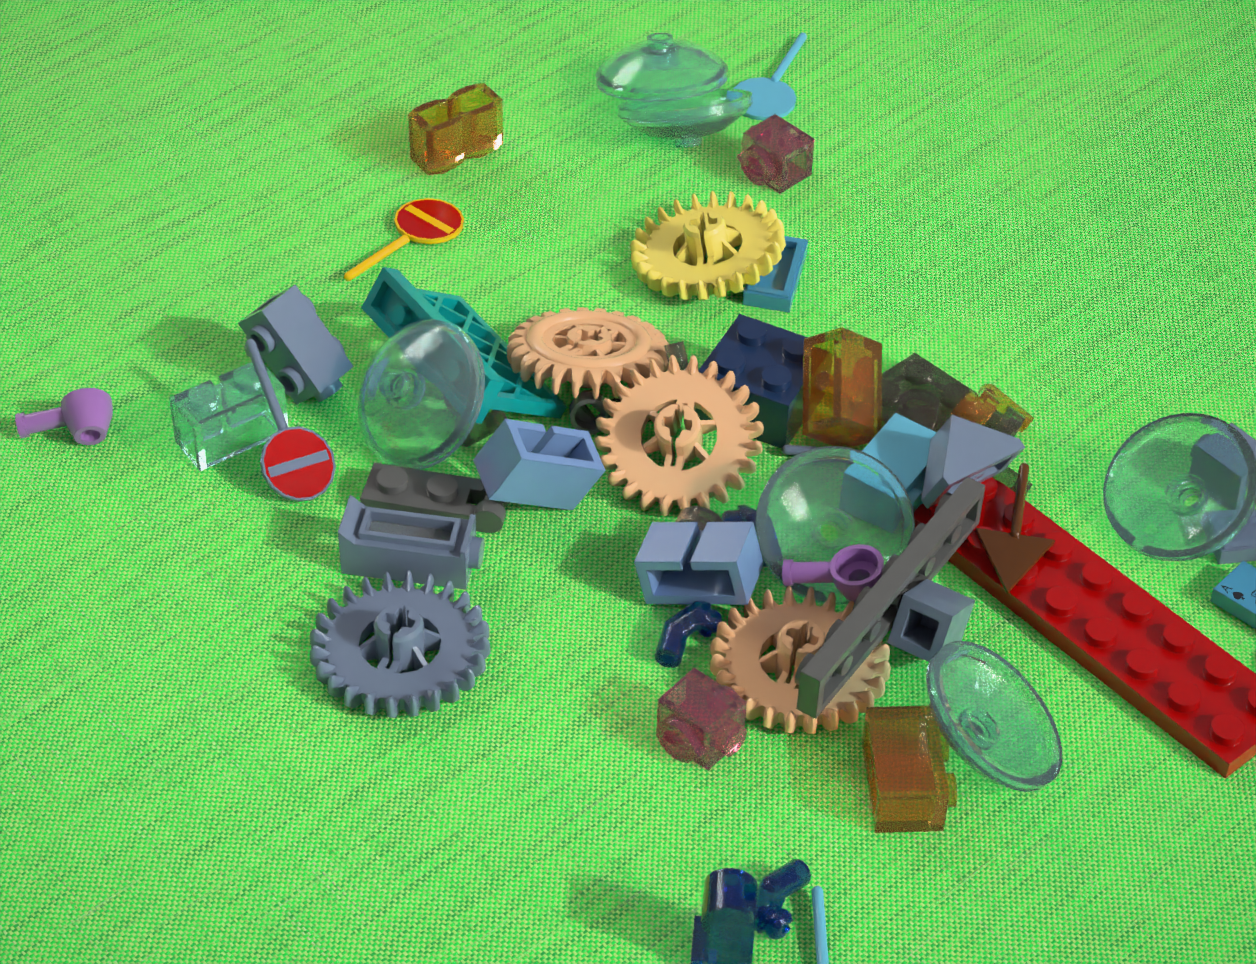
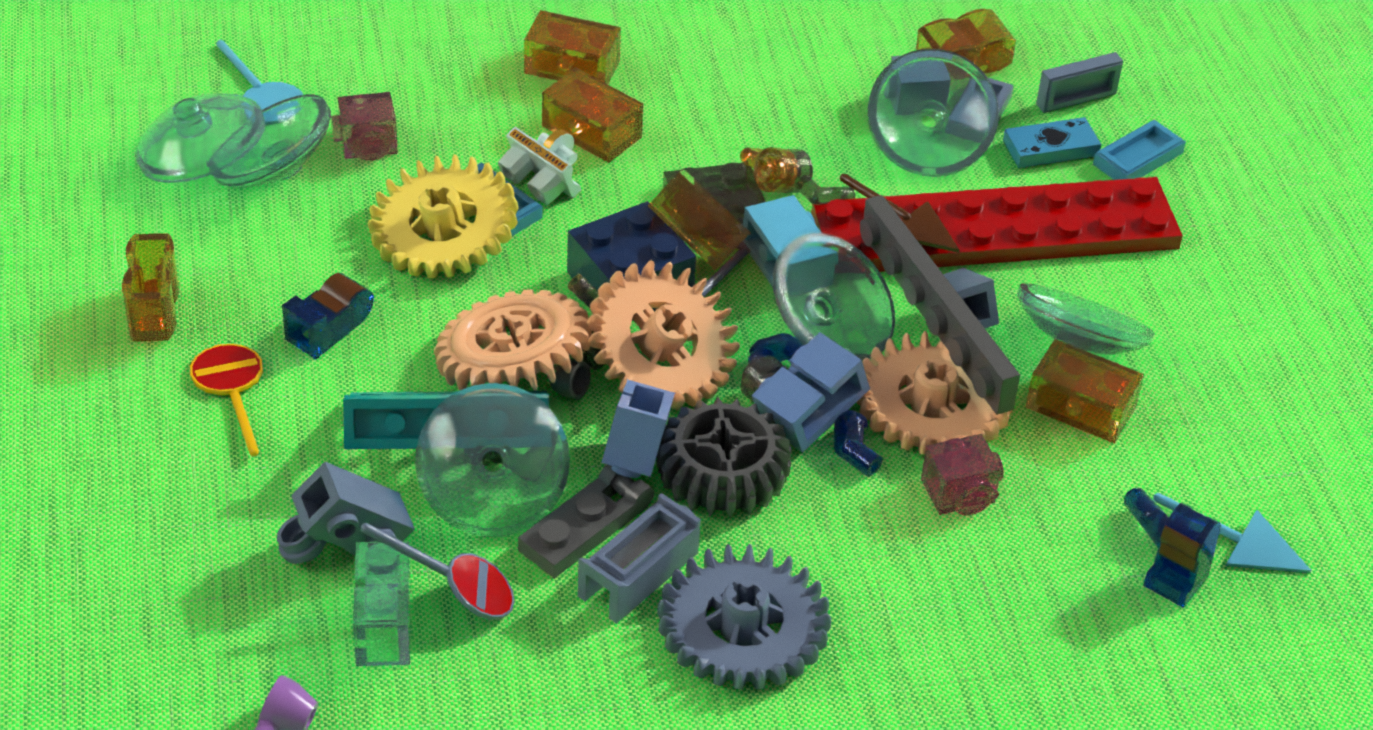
camera: 60 degrees left, 0 degrees up
(530, 238) = (326, 314): none -> leg
(575, 558) = (724, 457): none -> dark grey gear
(838, 274) = (548, 157): none -> light aqua hips
(849, 570) = (888, 303): medium lavender bar -> none
(940, 274) = (593, 113): none -> clear orange brick
(964, 451) = (835, 197): sand blue slope -> none
(1013, 224) = (565, 42): none -> clear orange brick

